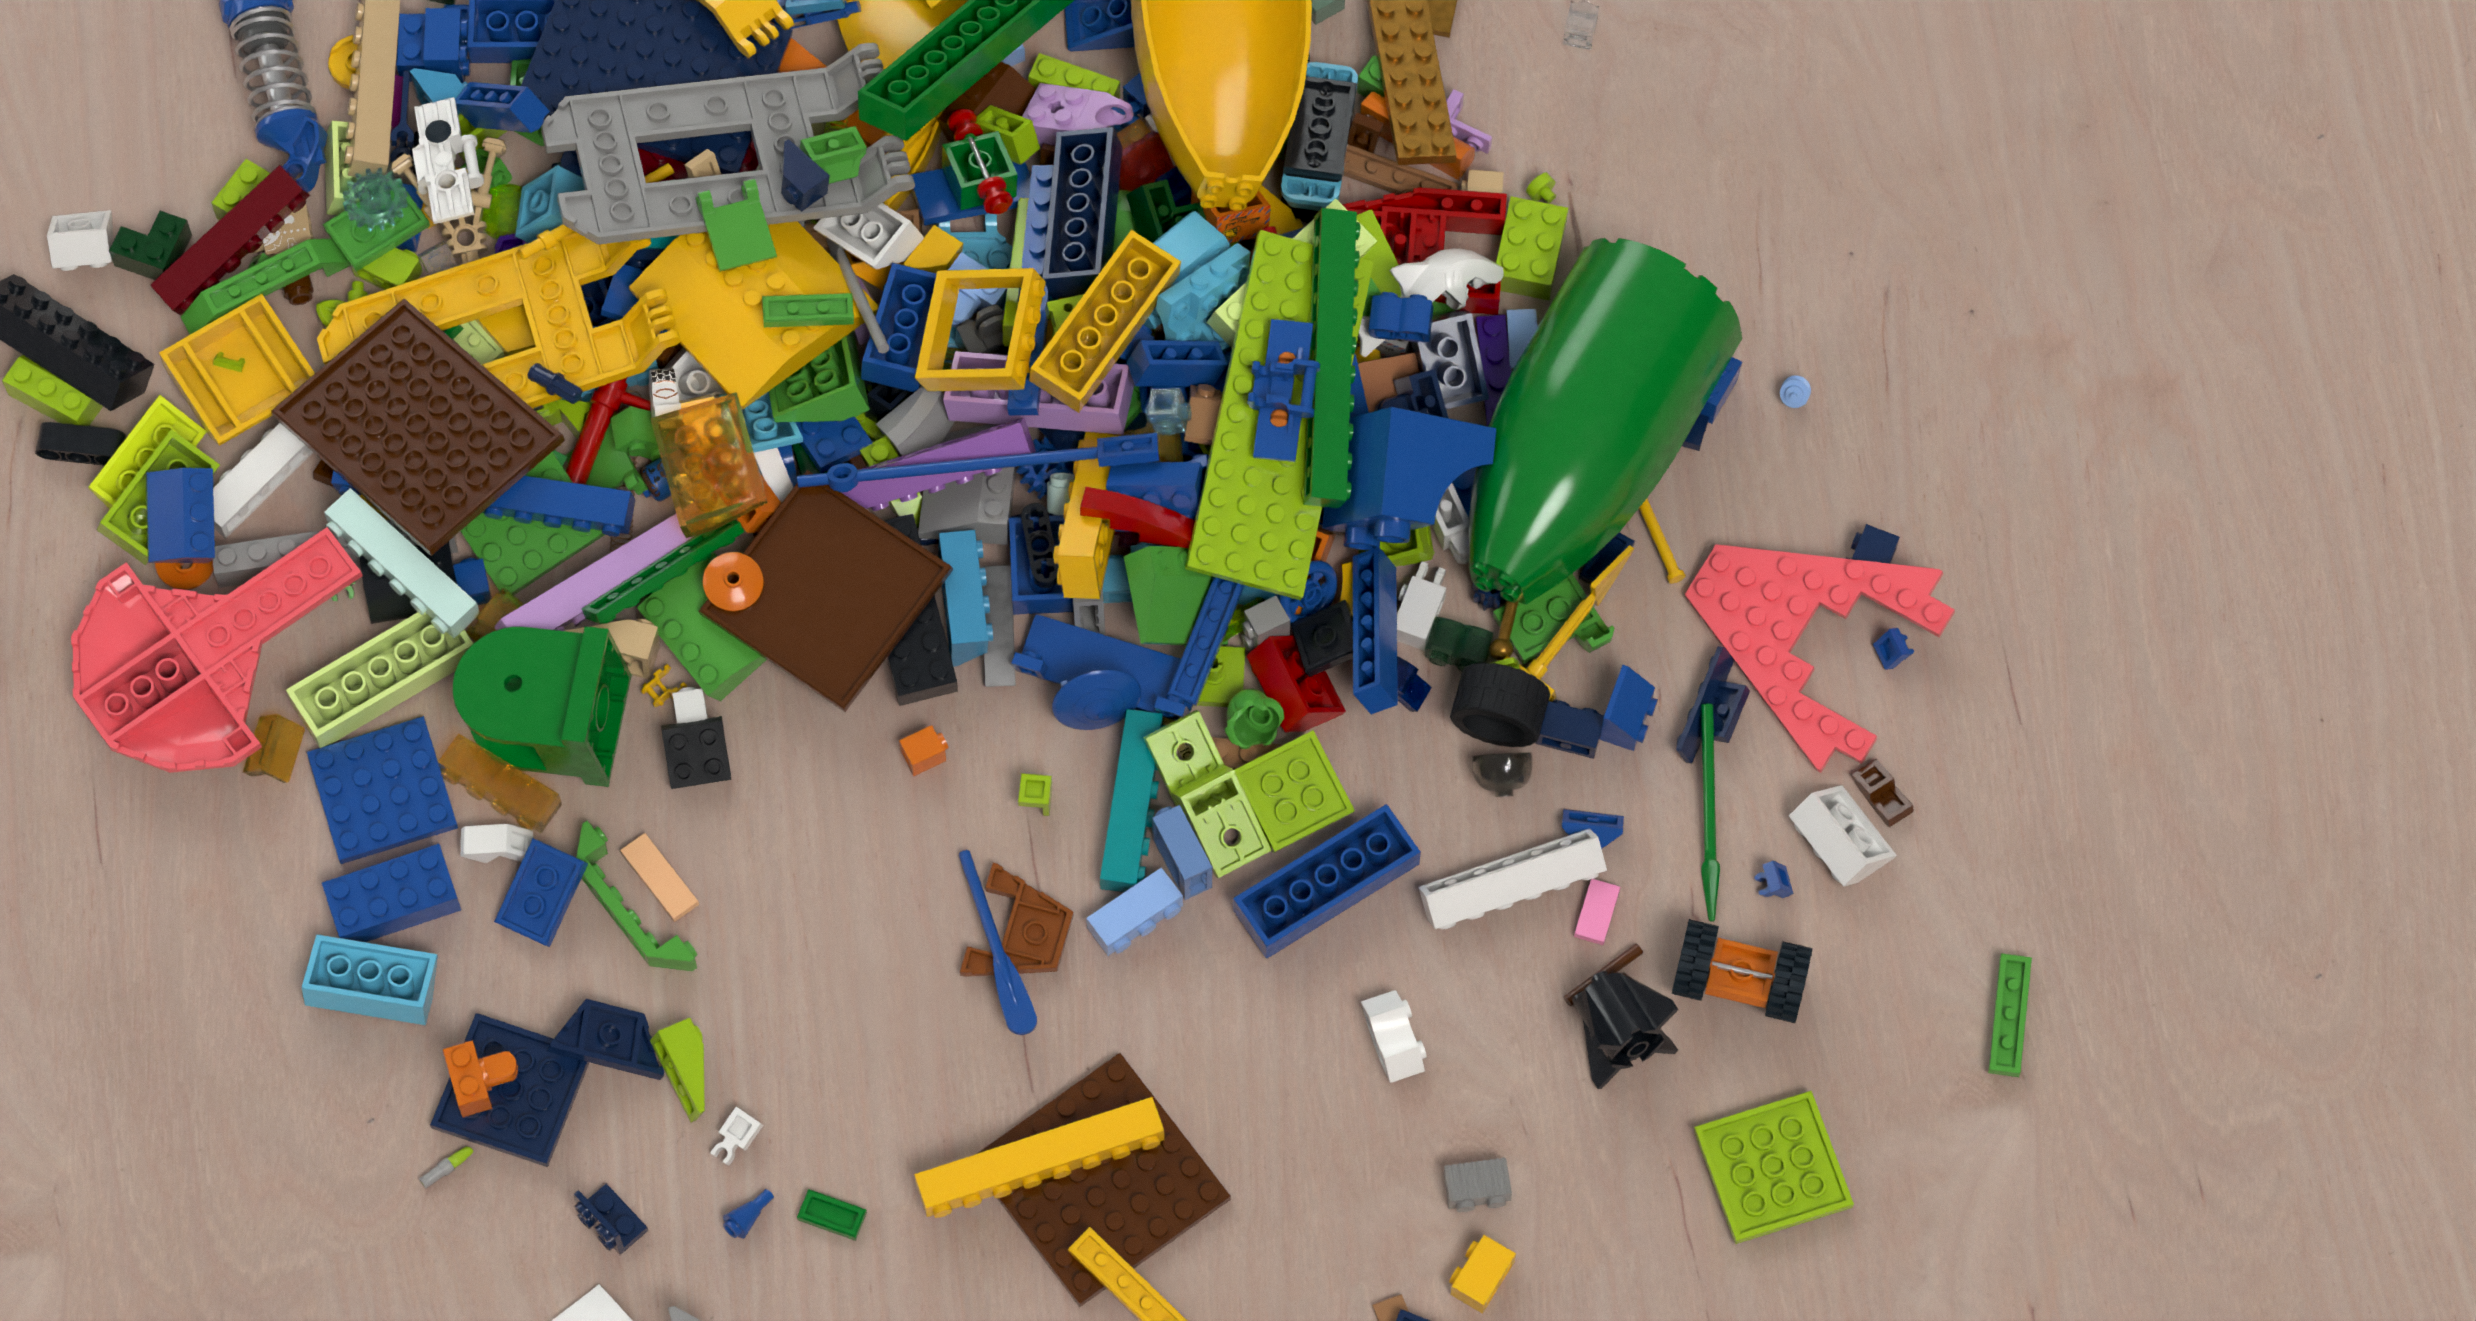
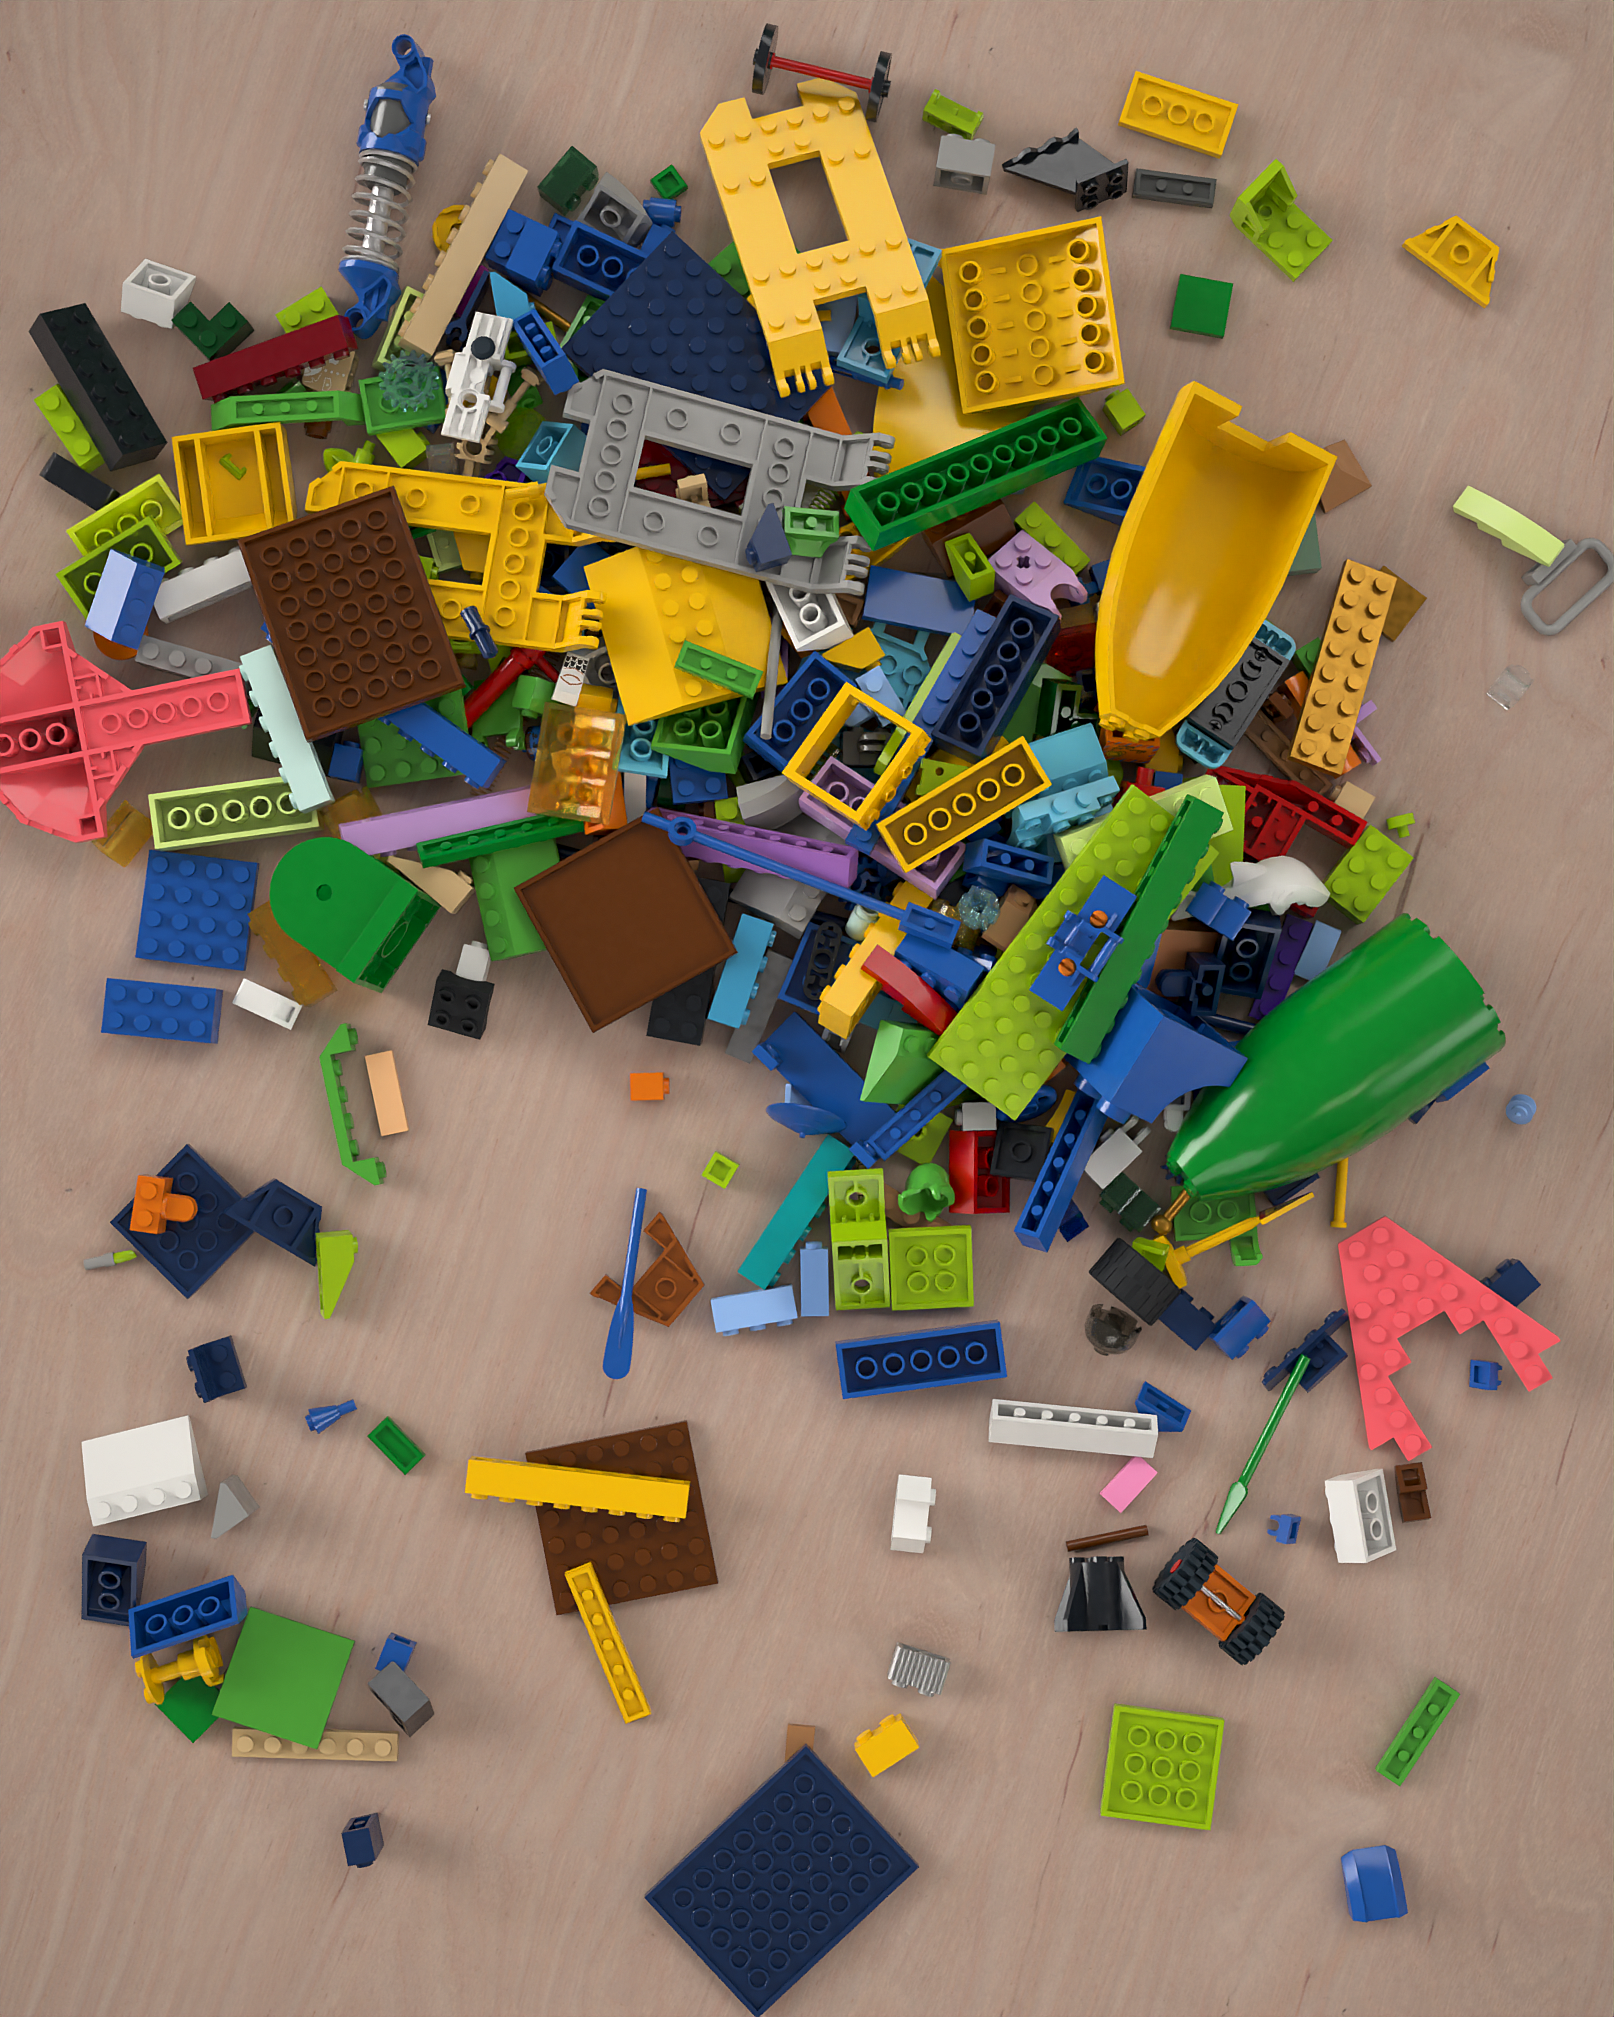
camera: 25 degrees right, 20 degrees up
(370, 979) = (113, 1076): medium azure slope -> none
(541, 892) = (283, 1066): blue tile -> none
(648, 688) = (454, 937): yellow piece -> none
(728, 595) = (566, 877): orange dish -> none
(737, 229) = (692, 567): bright green flag -> none
(738, 1131) = (351, 1344): white plate -> none
(978, 166) = (930, 591): green brick -> none
(2044, 1182) = (1373, 1884): none -> blue slope

